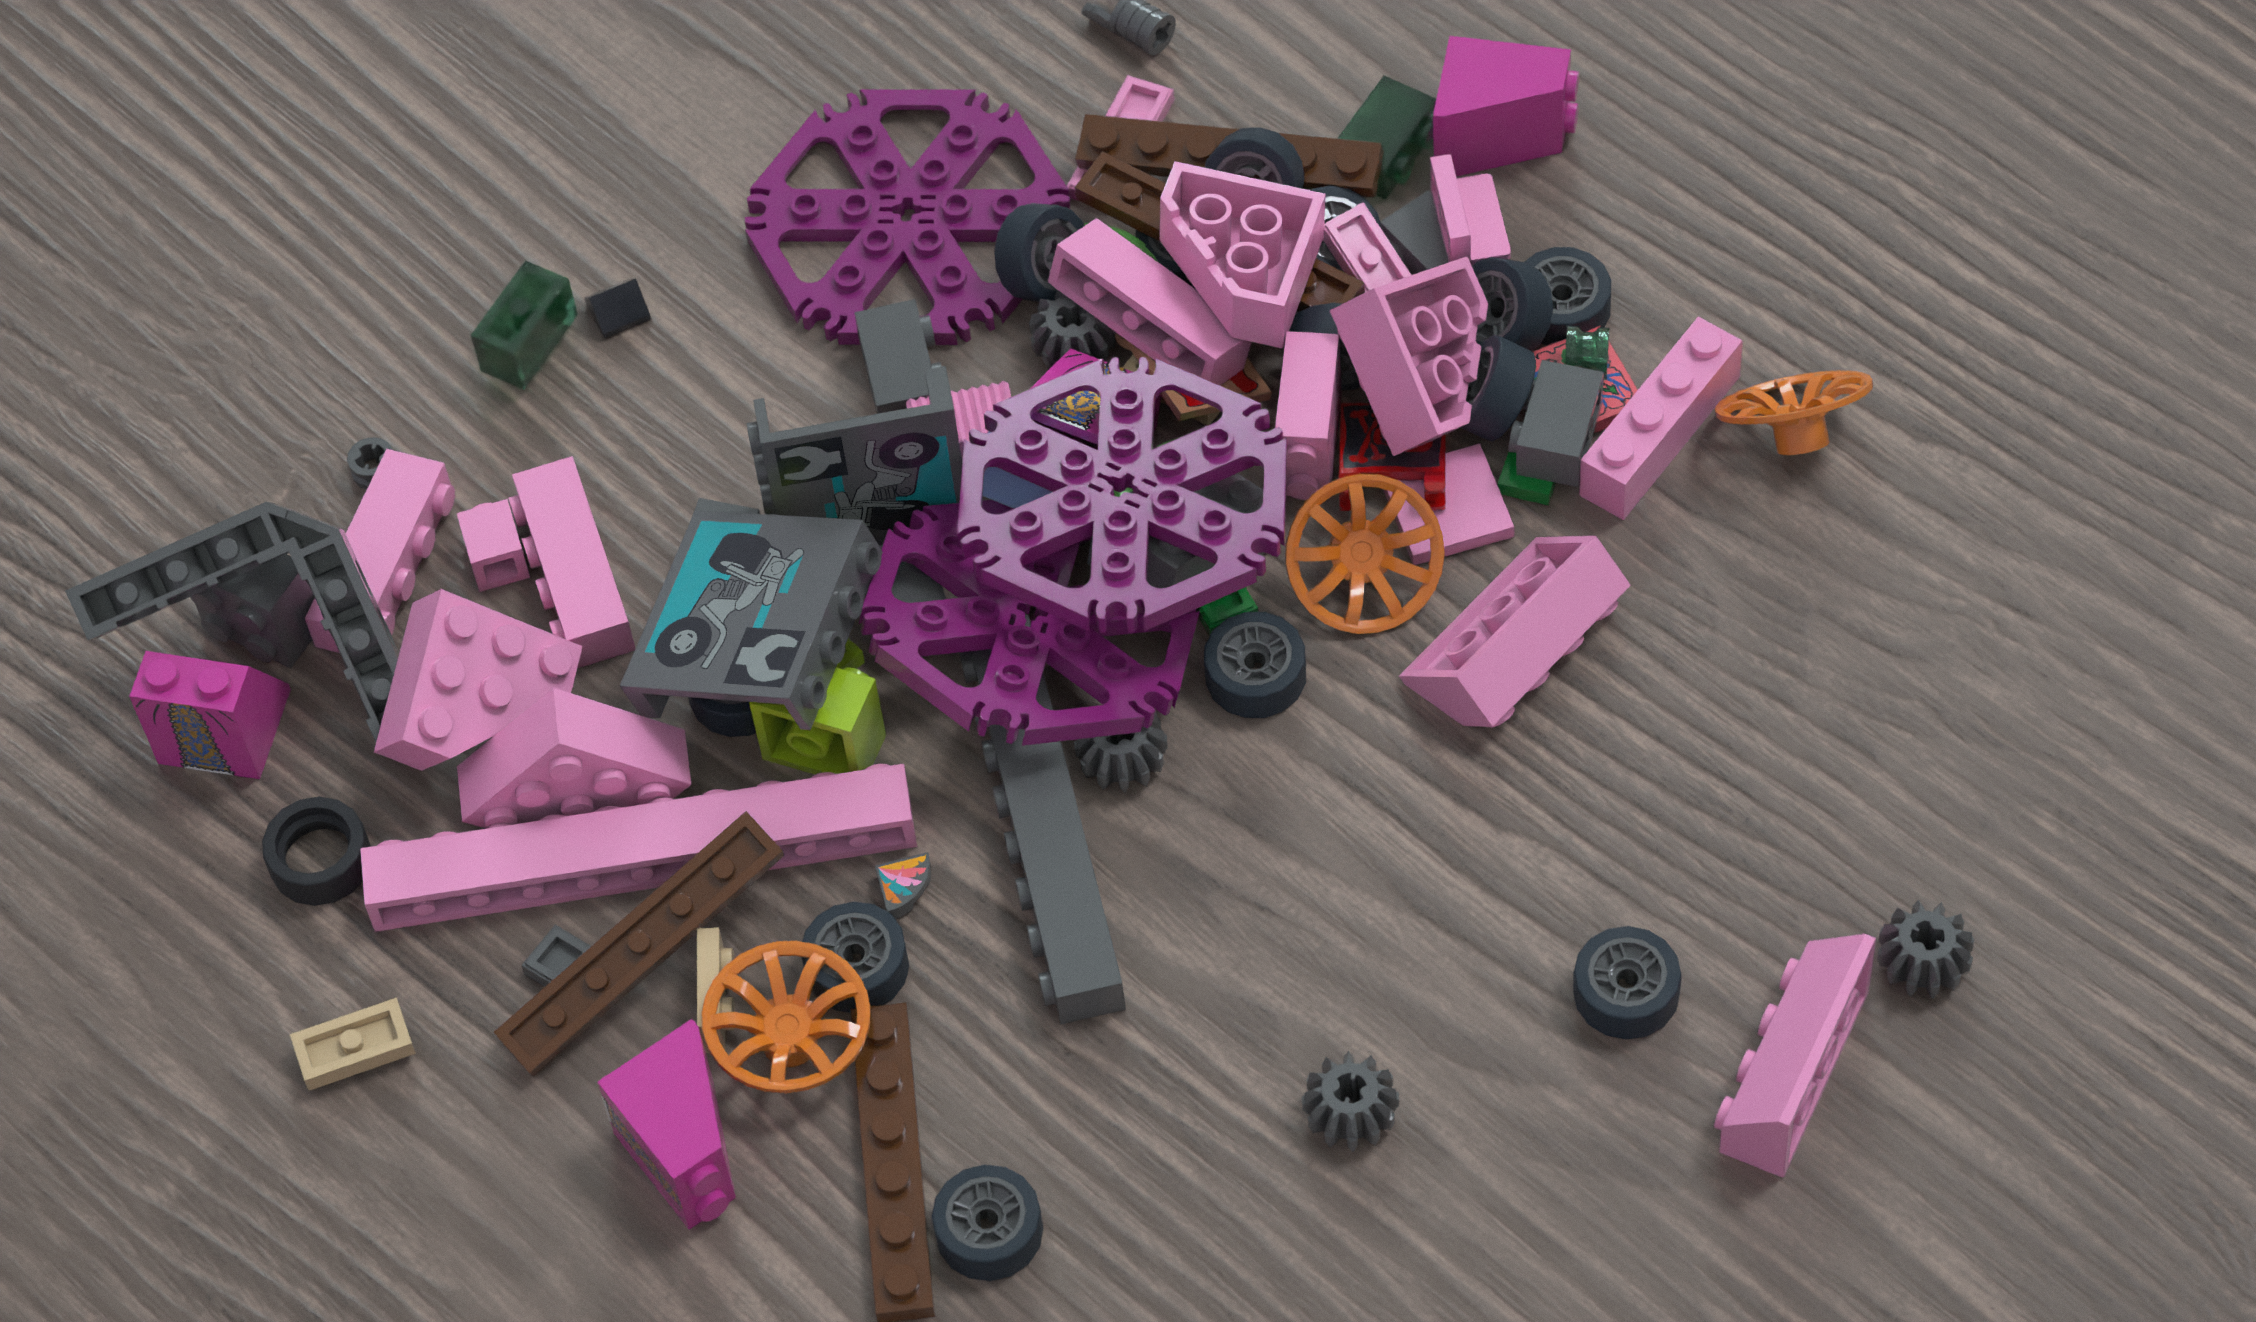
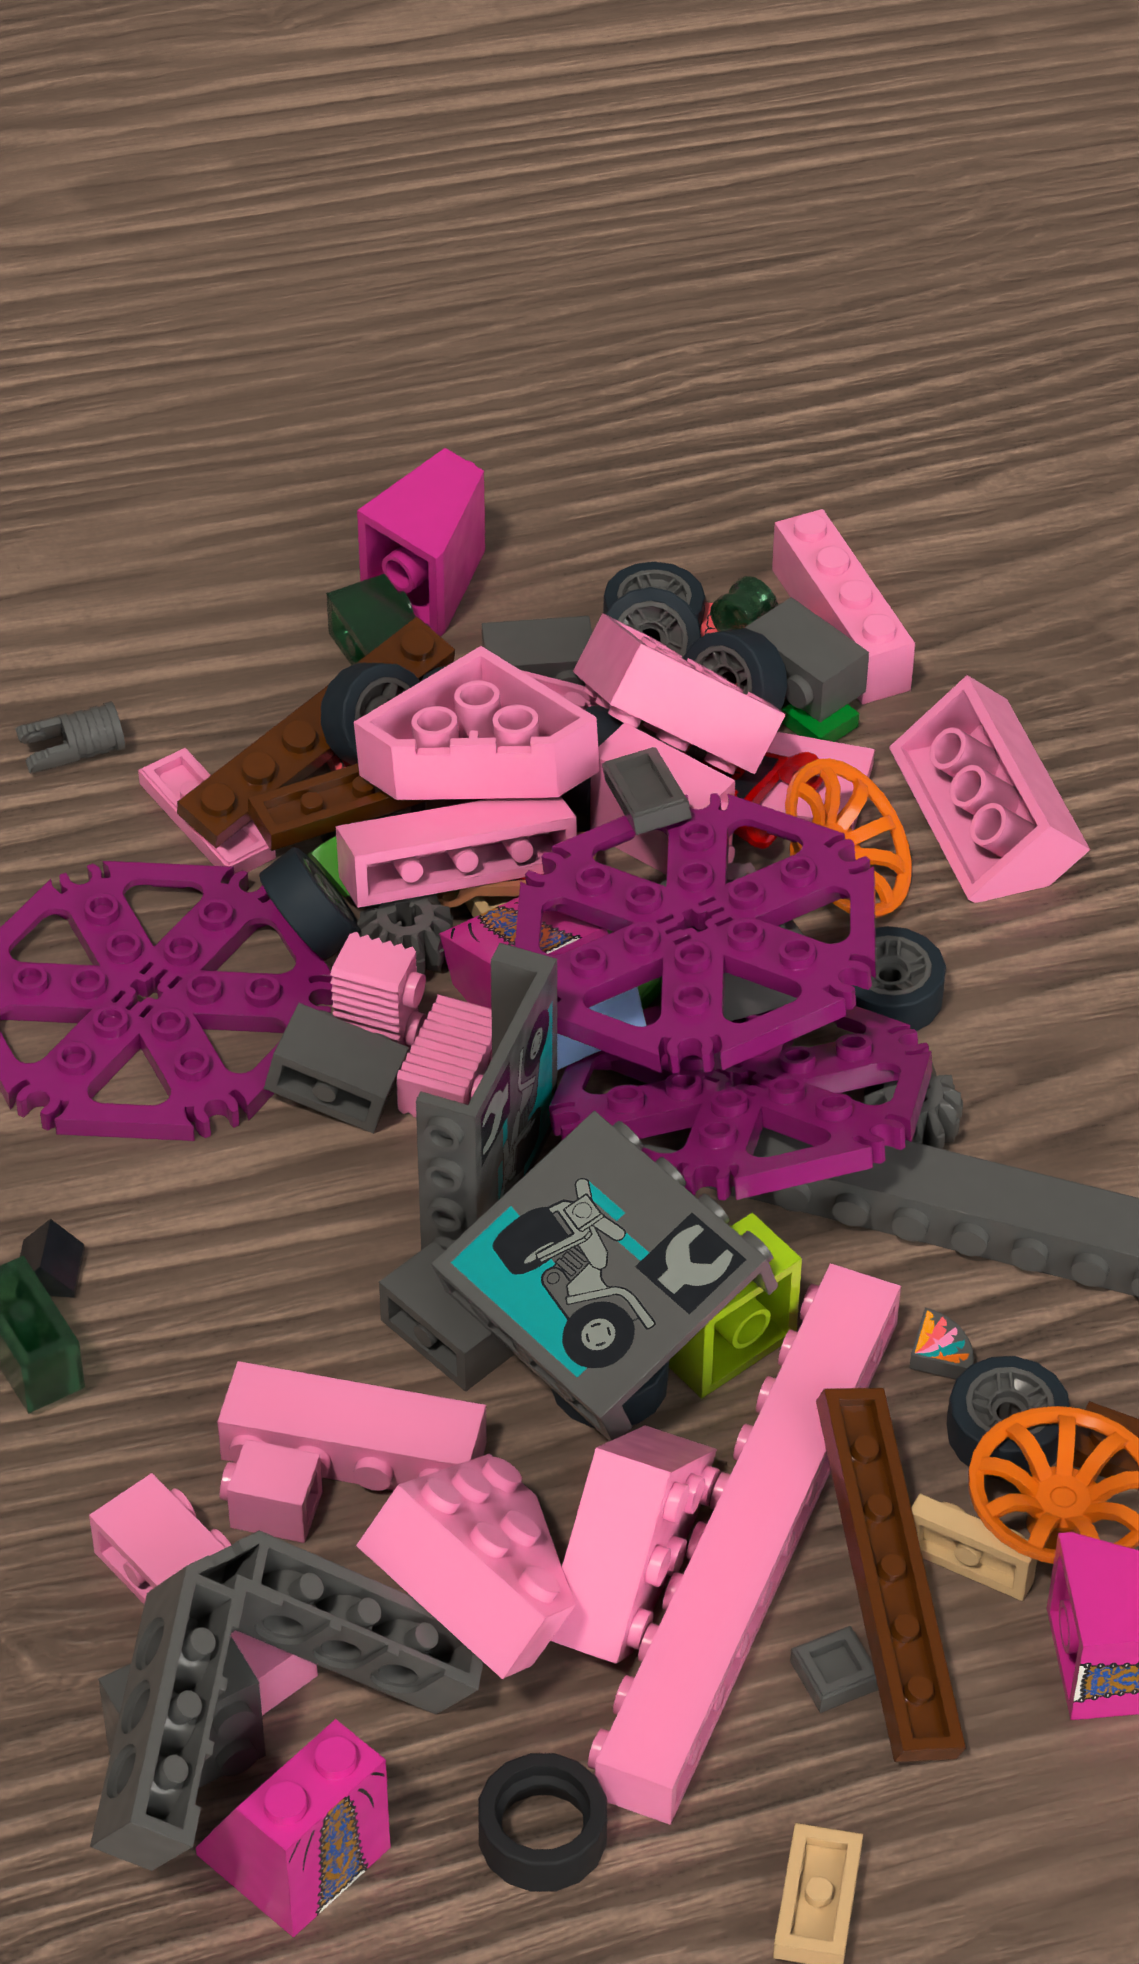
camera: 65 degrees left, 10 degrees down
(360, 453) = (64, 1539): dark grey bush -> none
(969, 339) = (378, 988): none -> bright pink brick
(1249, 384) = (646, 790): none -> dark grey tile
(1467, 213) = (539, 607): bright pink panel -> none
(1795, 426) = (921, 528): orange wheel -> none

